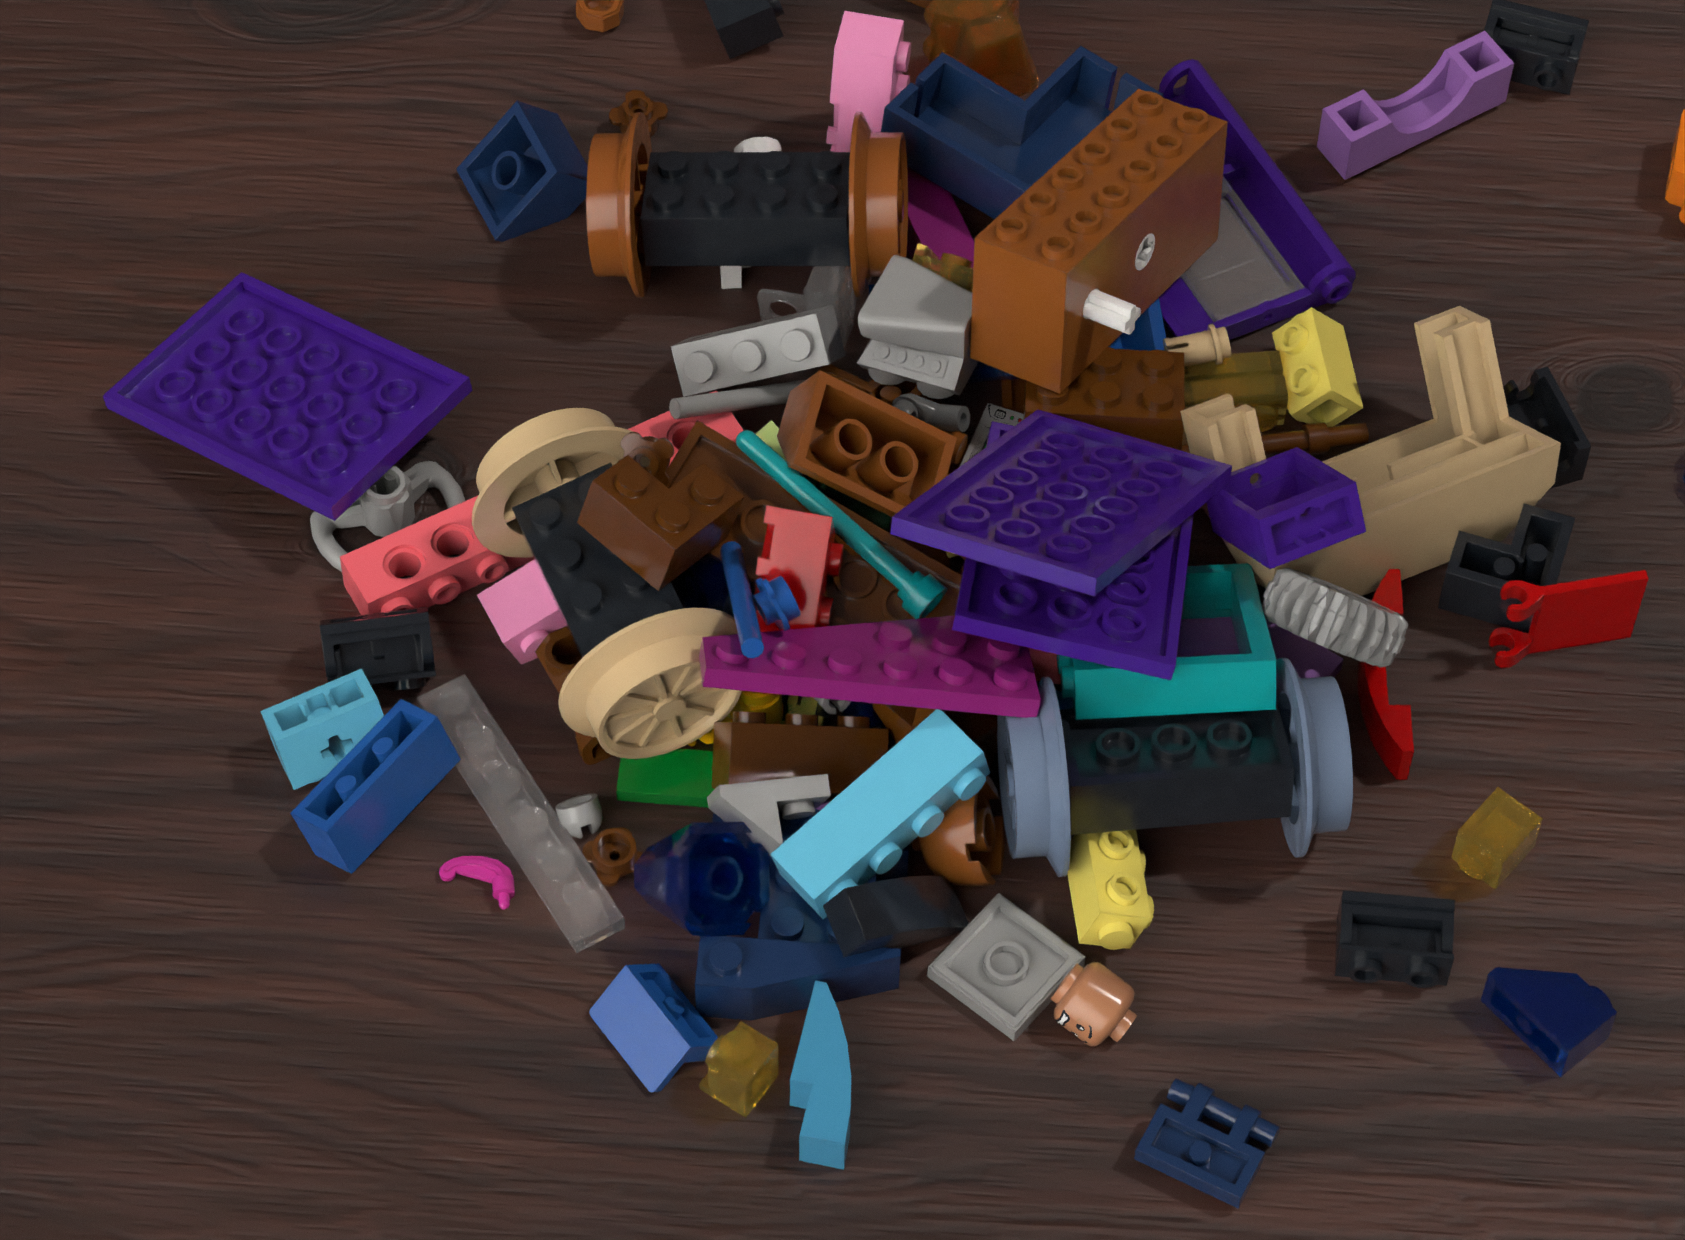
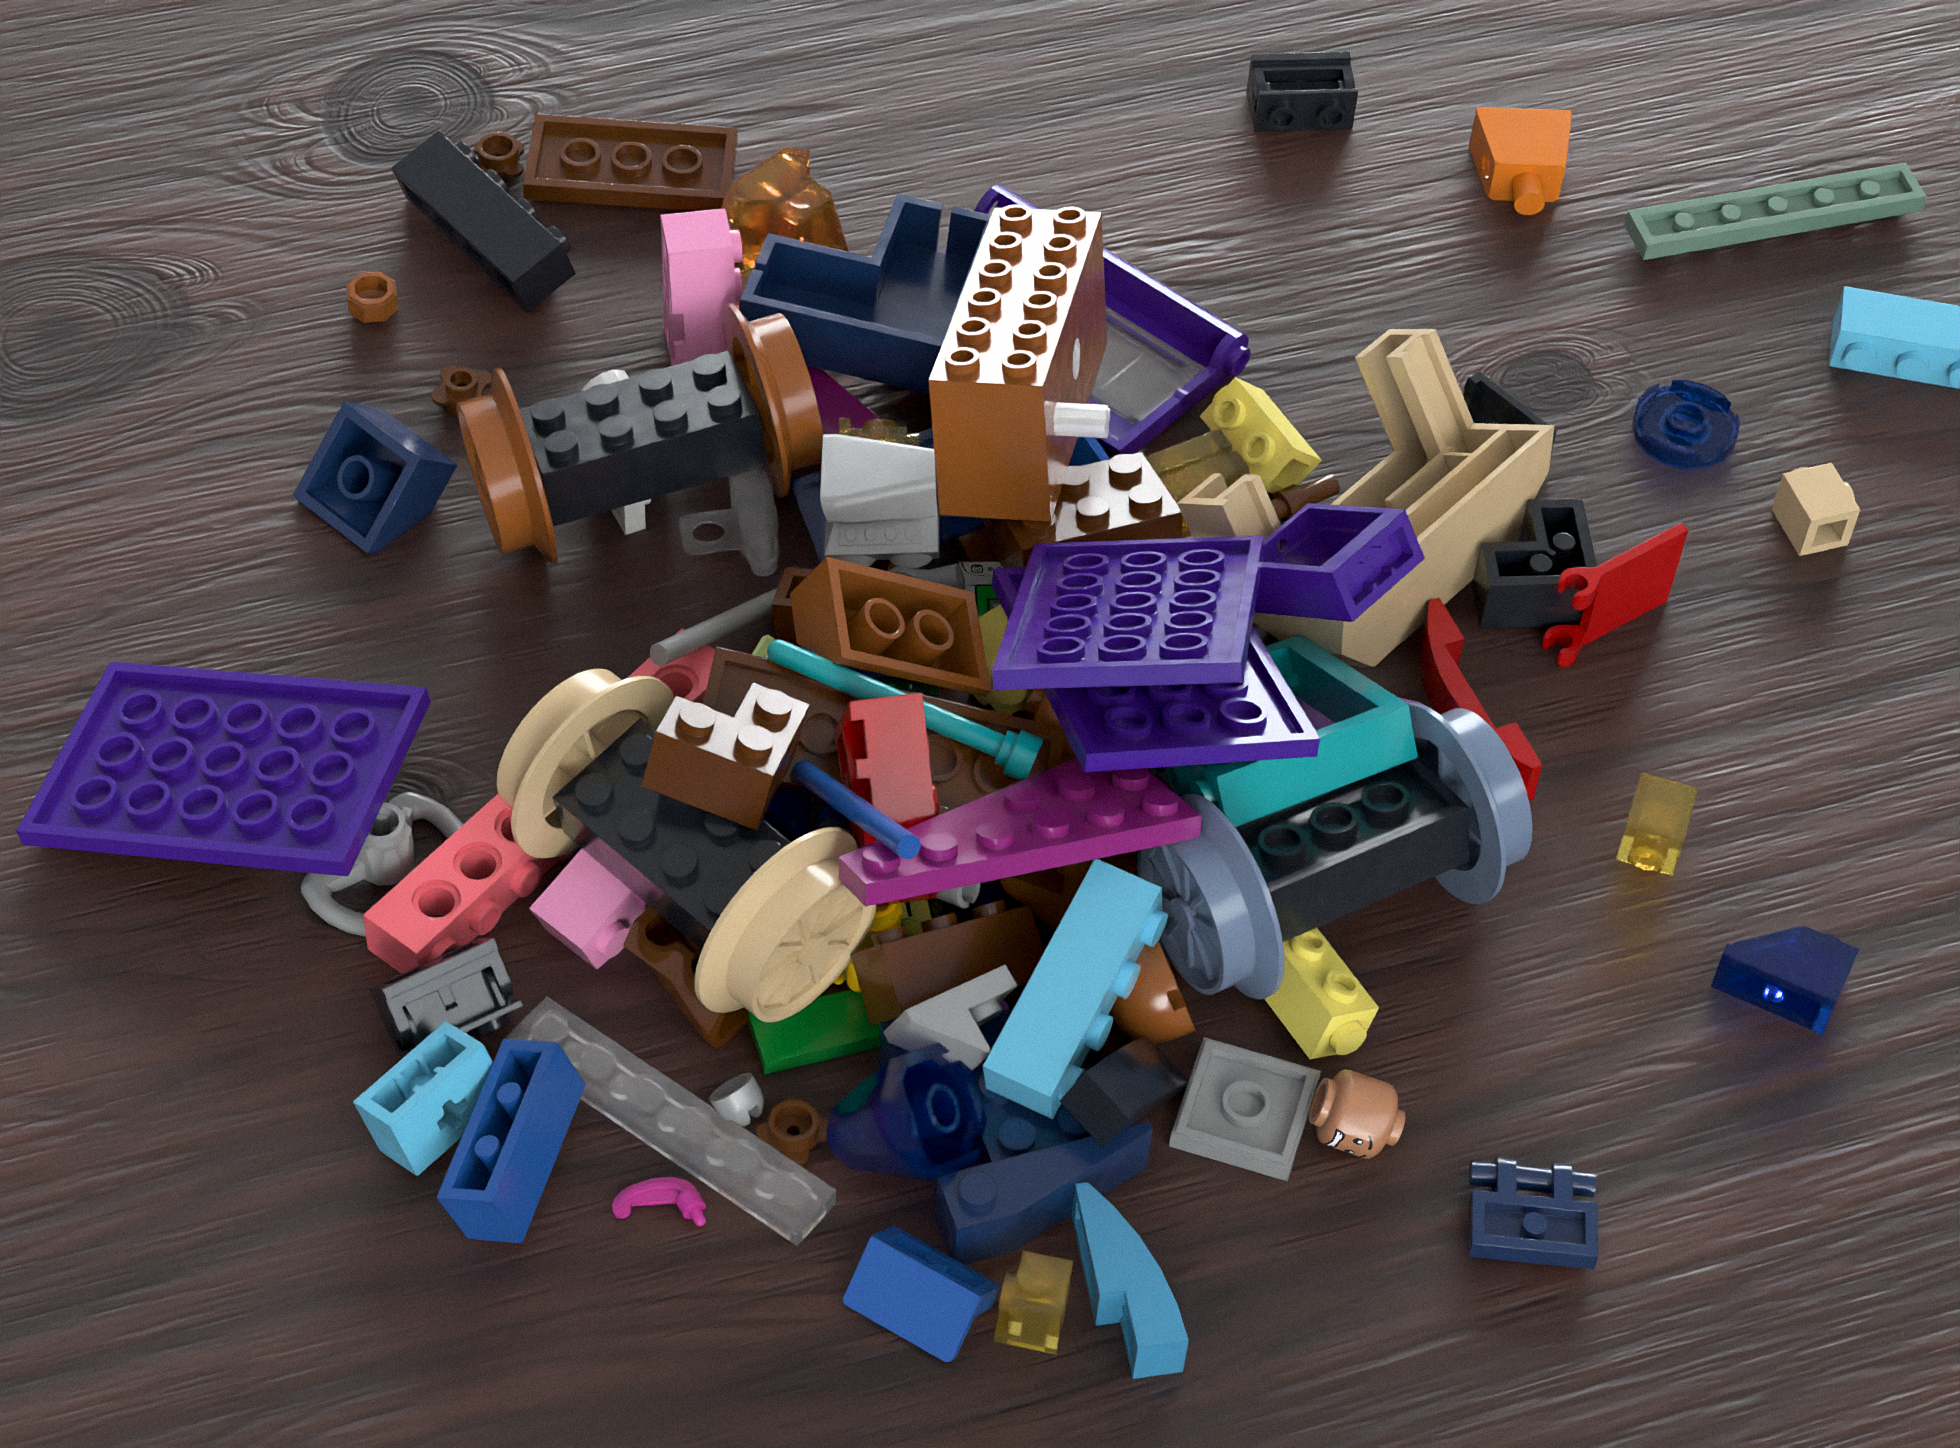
camera: 25 degrees left, 5 degrees down
(656, 450) = (665, 690): reddish brown plate -> none
(758, 350) = (710, 576): light grey brick -> none
(776, 602) = (896, 797): blue plate -> none
(1201, 346) = (1155, 441): tan pin -> none
(1334, 617) = (1421, 654): light grey gear -> none
(1394, 938) = (1608, 952): black hinge -> none
(1460, 86) = (1196, 205): medium lavender arch -> none

